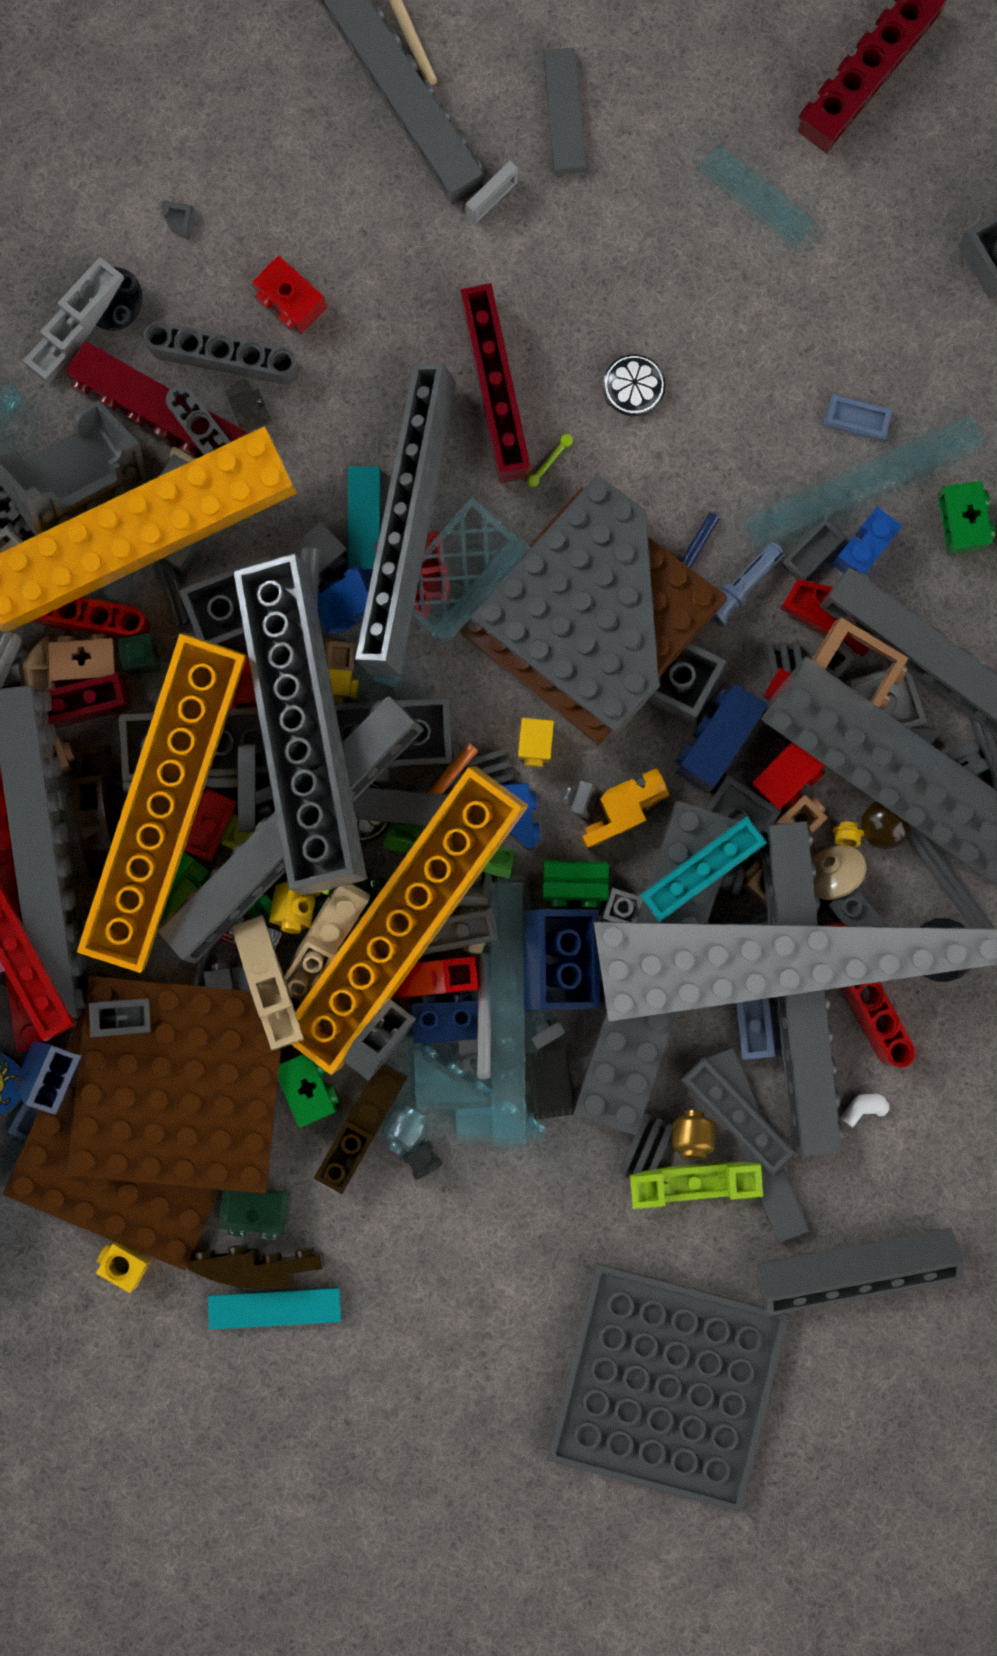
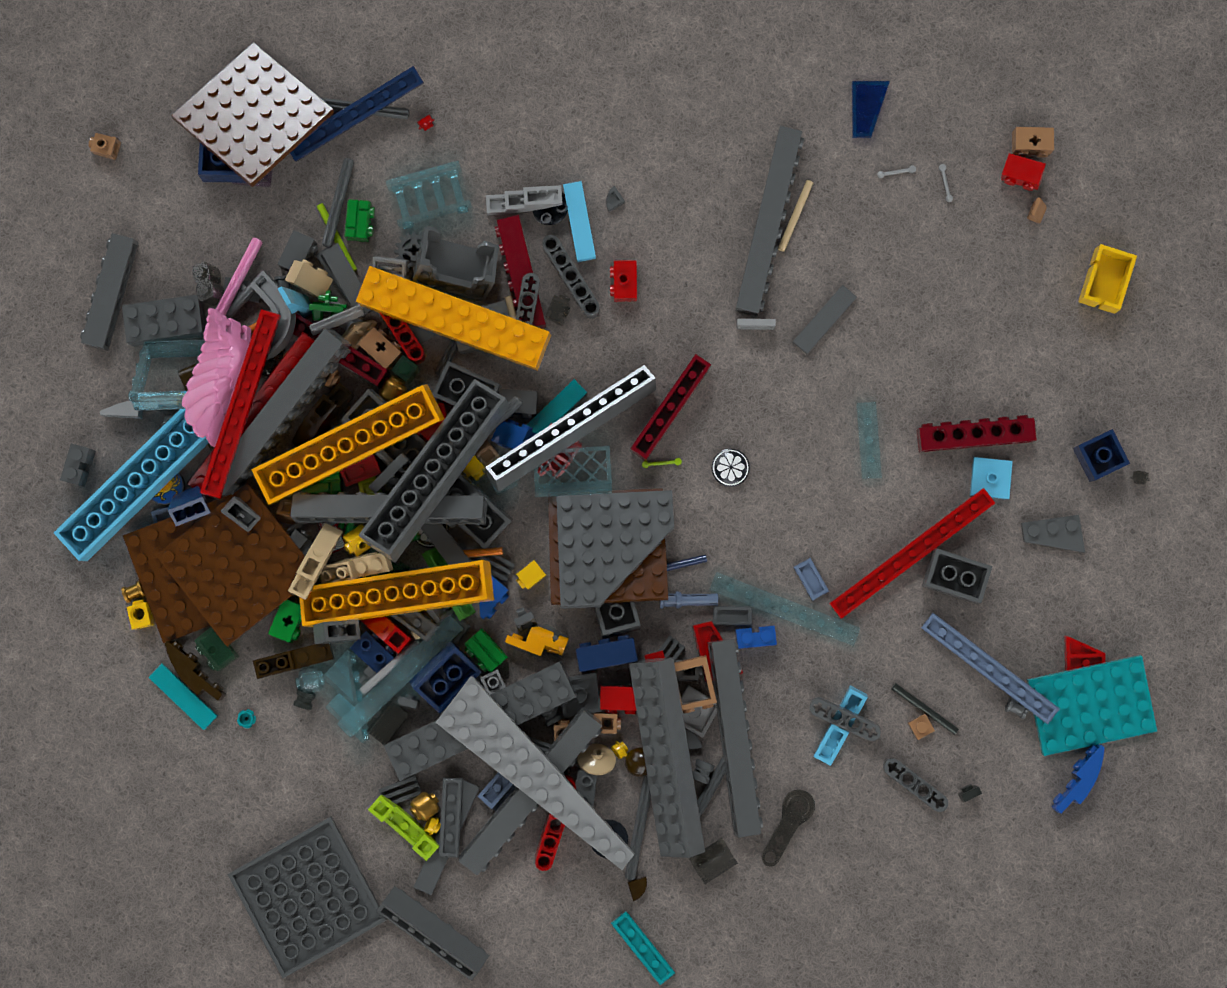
camera: 50 degrees right, 0 degrees up
(85, 1248) = (132, 592): none -> pearl gold bush
(144, 692) = (392, 388): none -> pearl gold head
(165, 280) = (579, 221): none -> medium azure slope
(170, 966) = (284, 512): none -> medium nougat slope
(371, 1261) = (241, 718): none -> teal plate
(703, 869) = (539, 700): teal tile -> none
(726, 1149) = (432, 826): none -> yellow plate
(865, 1104) = (507, 867): white arm -> none
(938, 99) = (991, 475): none -> medium azure plate
(941, 270) = (912, 553): none -> red plate
(958, 531) = (812, 657): green brick -> none

